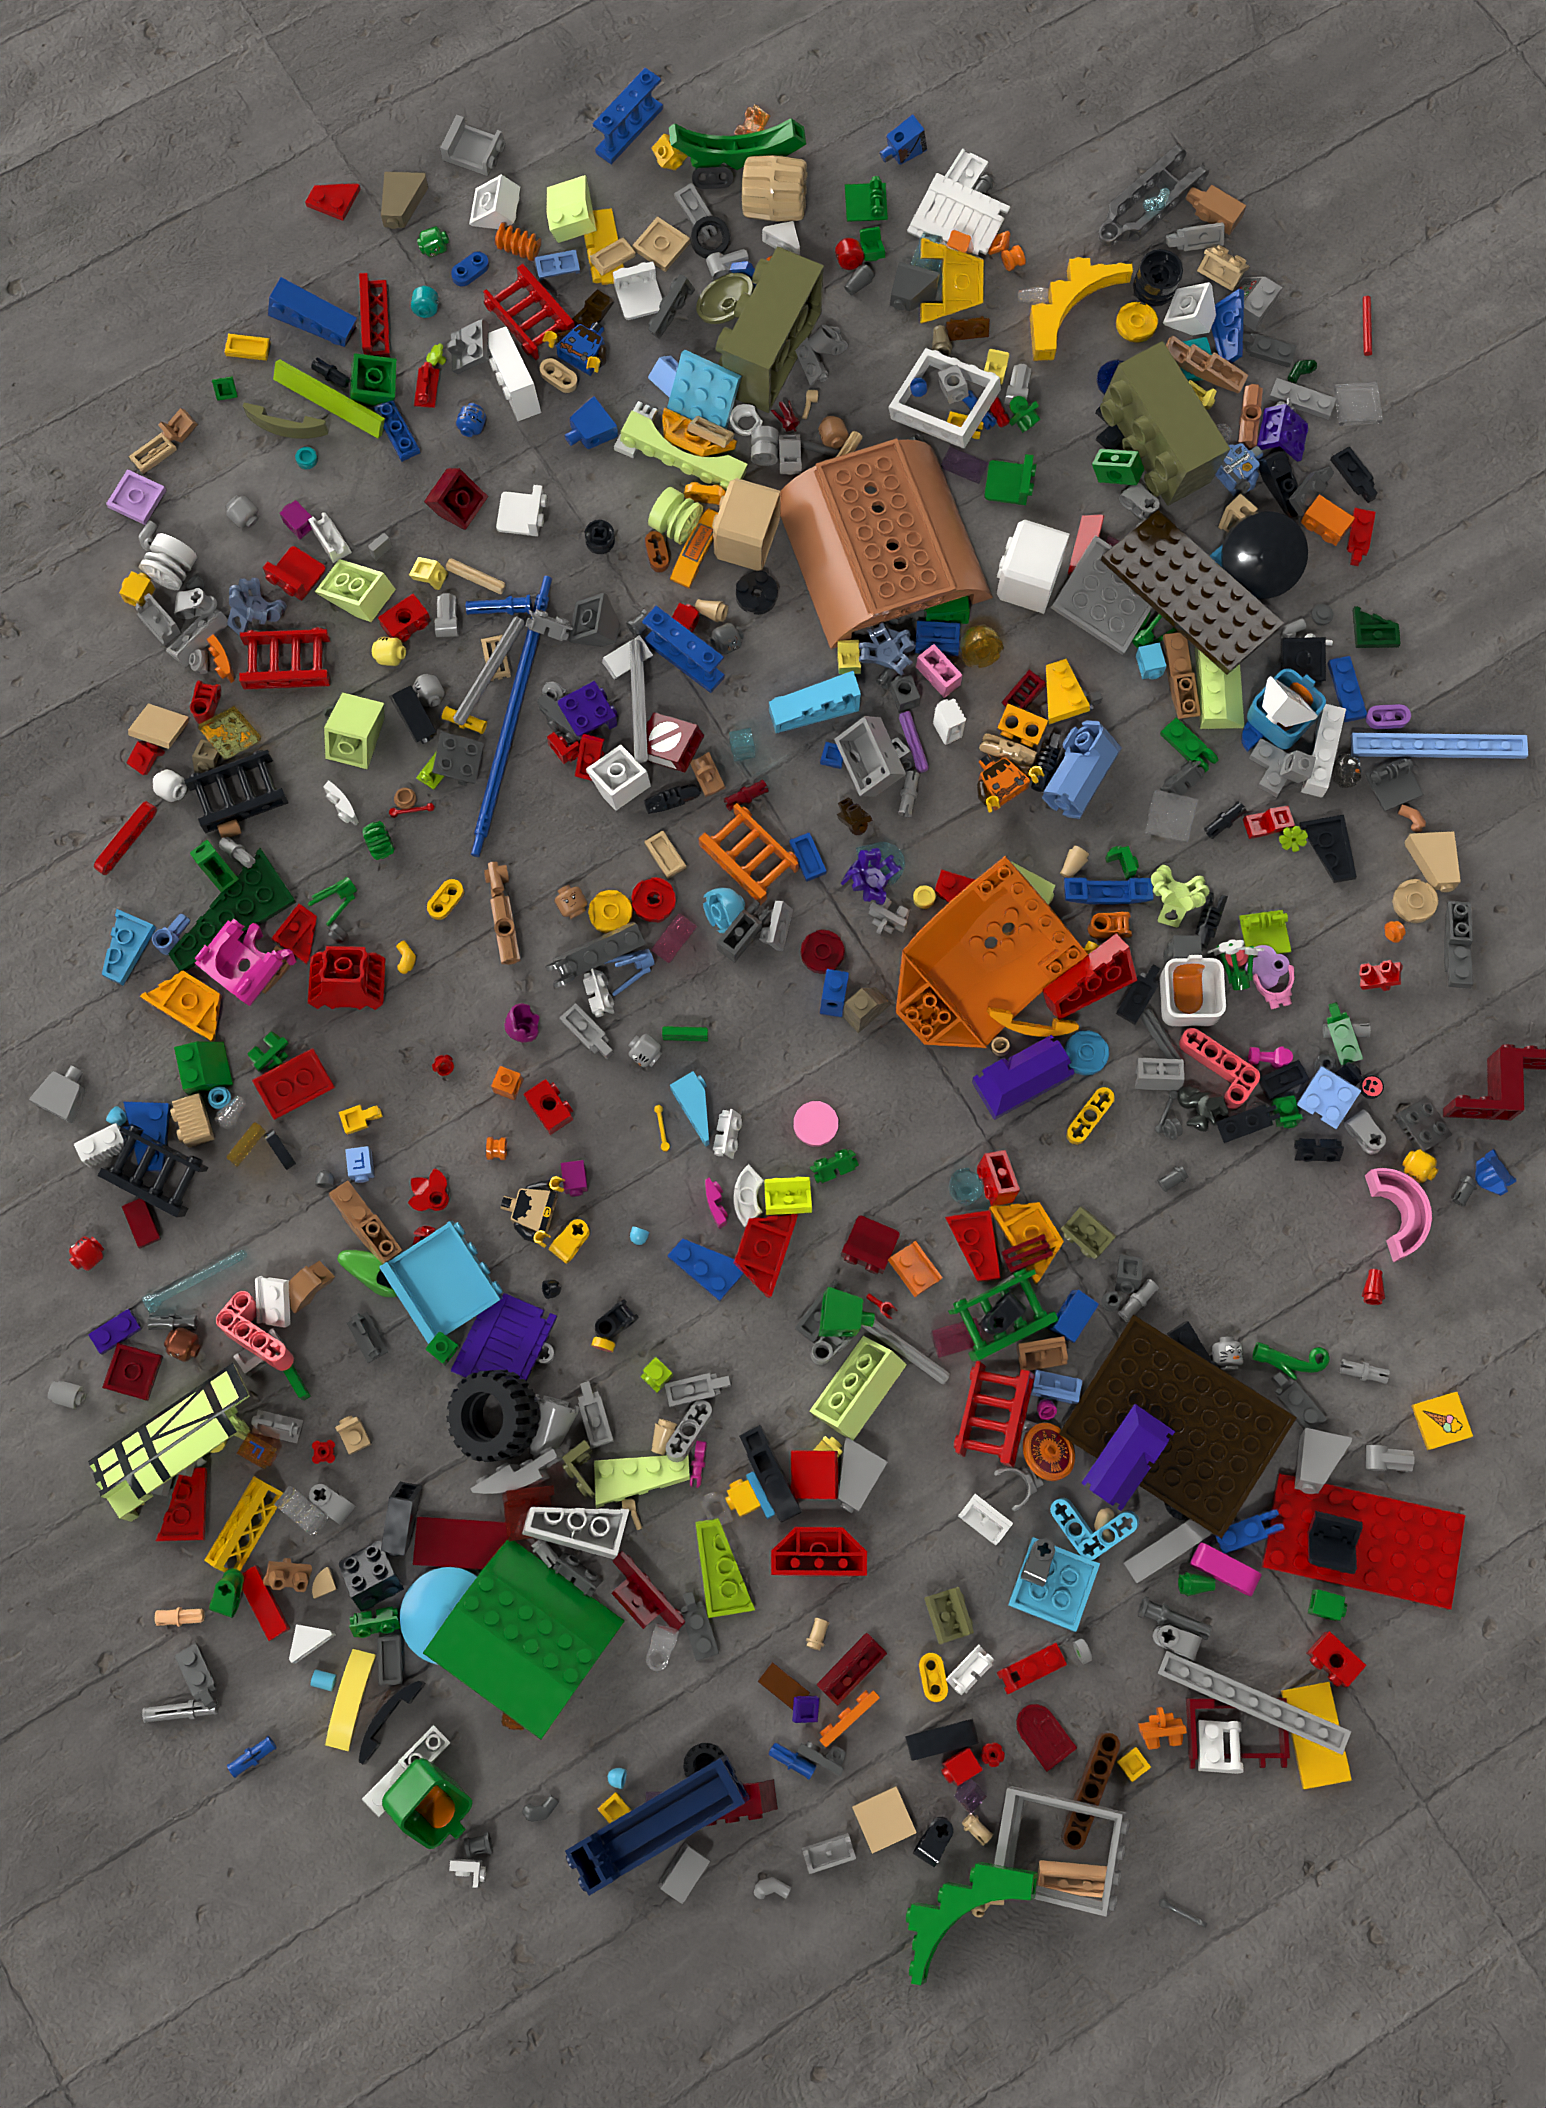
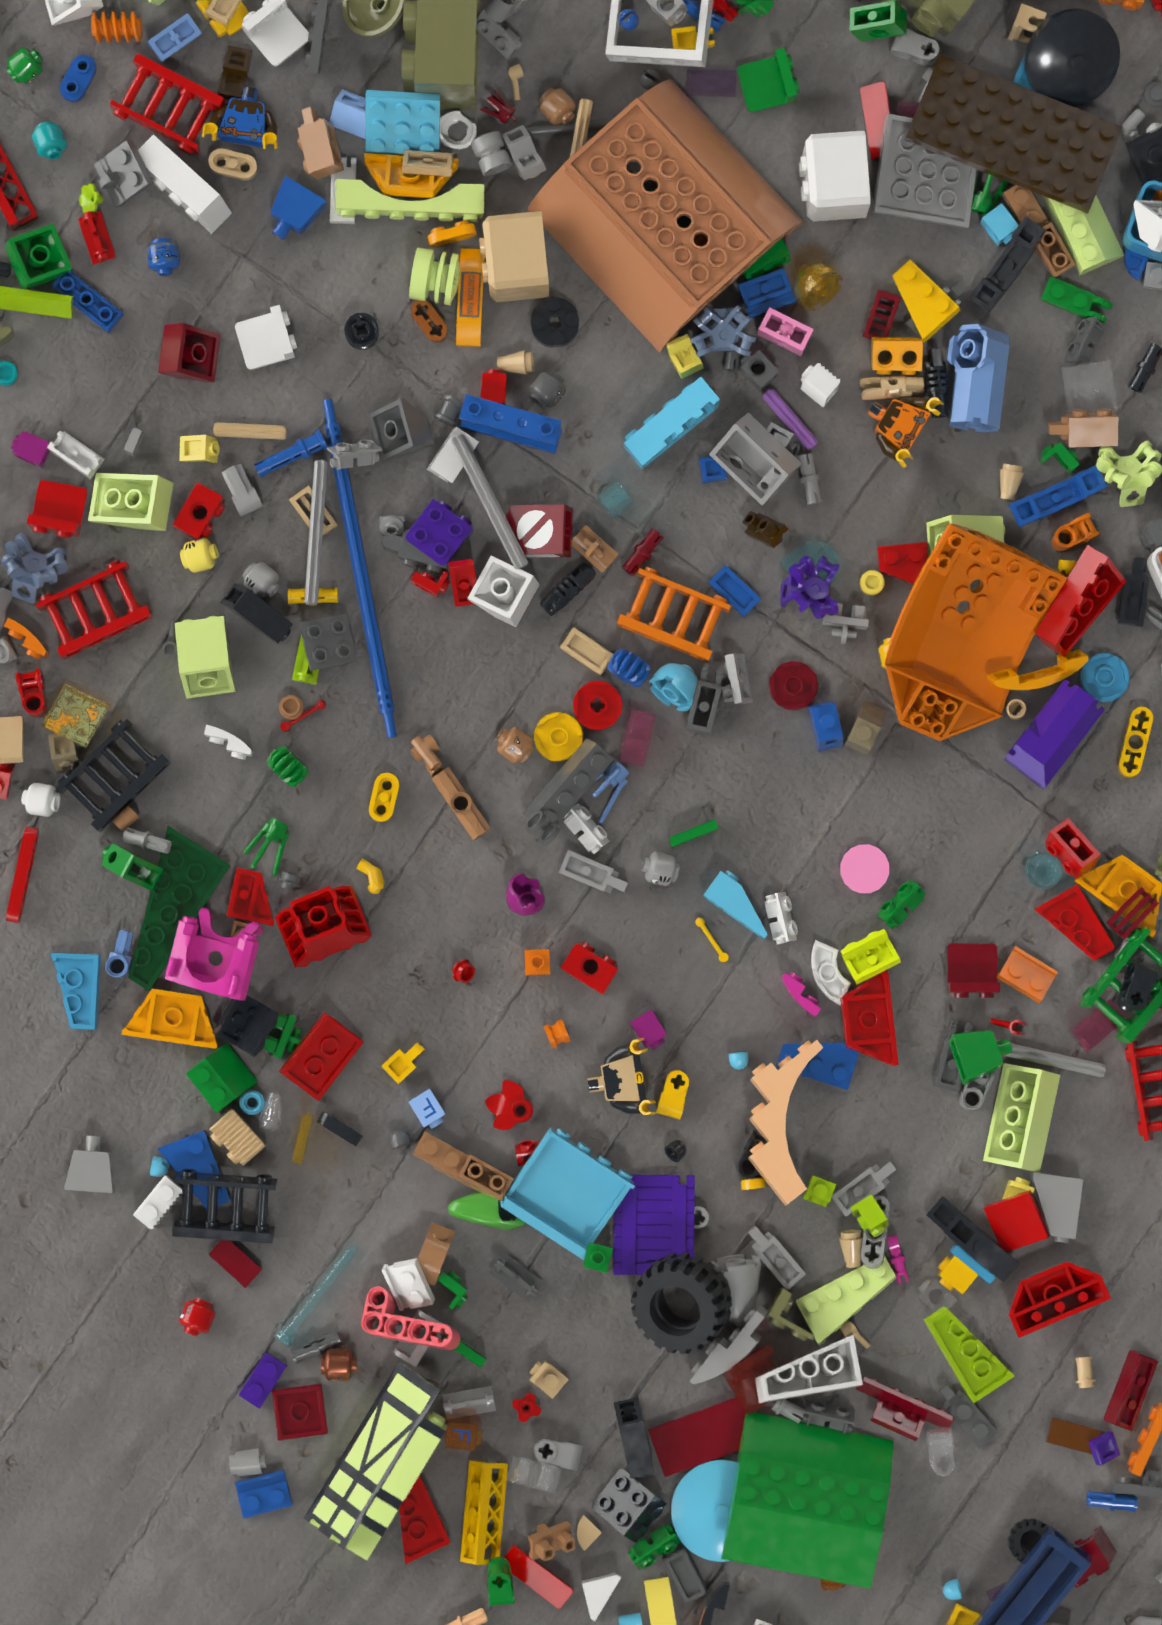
camera: 25 degrees left, 10 degrees up
(68, 1428) = (263, 1493): none -> blue plate
(243, 1029) = (246, 1024): none -> black bracket
(311, 1318) = (452, 1282): none -> green bracket
(631, 386) = (319, 145): none -> hinge
(640, 1292) = (770, 1120): none -> light nougat arch
(689, 1412) = (870, 1216): none -> lime brick
(692, 878) = (629, 668): none -> blue gear
(1146, 694) = (1009, 264): none -> black slope
(1156, 846) = (1087, 429): none -> medium nougat hinge

